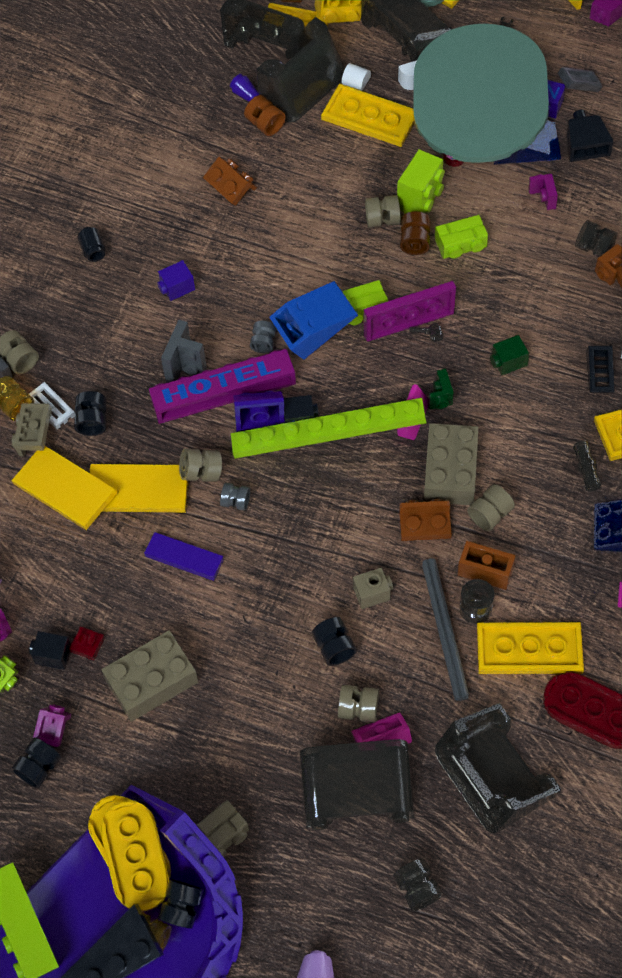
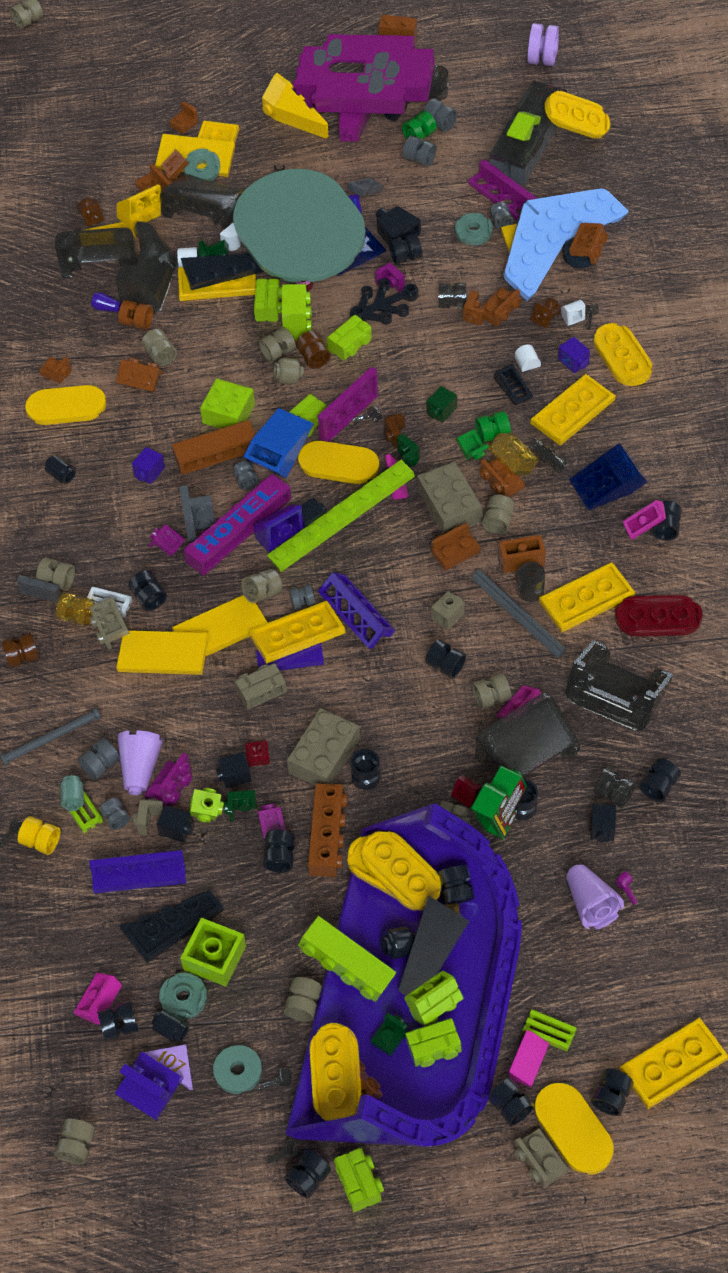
camera: 30 degrees left, 5 degrees down
(36, 687) = (240, 801): none -> dark green bracket
(85, 931) = (397, 942): none -> black head
(97, 766) = (326, 830): none -> dark orange brick
(133, 572) = (260, 686): none -> dark tan brick
(142, 179) = (65, 404): none -> yellow tile
(143, 368) = (166, 540): none -> magenta bracket
(156, 138) = (55, 369): none -> dark orange bracket
(175, 720) = (365, 769): none -> black wheel
(206, 532) = (296, 631): none -> yellow tile
(248, 291) = (213, 447): none -> dark orange brick
(263, 800) = (465, 791): none -> dark red tile
(265, 160) = (159, 347): none -> dark tan wheel
(270, 842) = (498, 801): none -> green brick
(286, 535) = (359, 602): none -> dark purple fence
(292, 254) = (227, 404): none -> lime brick
(312, 844) = (527, 805): none -> black wheel
(366, 367) = (338, 462): none -> yellow tile
(373, 102) = (216, 269): none -> black wing
(376, 244) = (288, 371): none -> dark tan head
(381, 918) = (603, 822): none -> black brick
(383, 84) = (219, 248): none -> dark green bracket
(401, 155) = (267, 300): none -> lime brick
(444, 353) = (392, 428): none -> reddish brown bracket
(471, 903) = (660, 779): none -> black wheel
(512, 416) = (471, 445): none -> green bracket
(520, 216) = (365, 312): none -> black plant
(524, 467) = (500, 477): none -> dark orange bracket
(547, 406) = (490, 427): none -> green wheel
(549, 448) = (513, 454): none -> clear yellow brick
(579, 165) = (406, 248): none -> black wheel

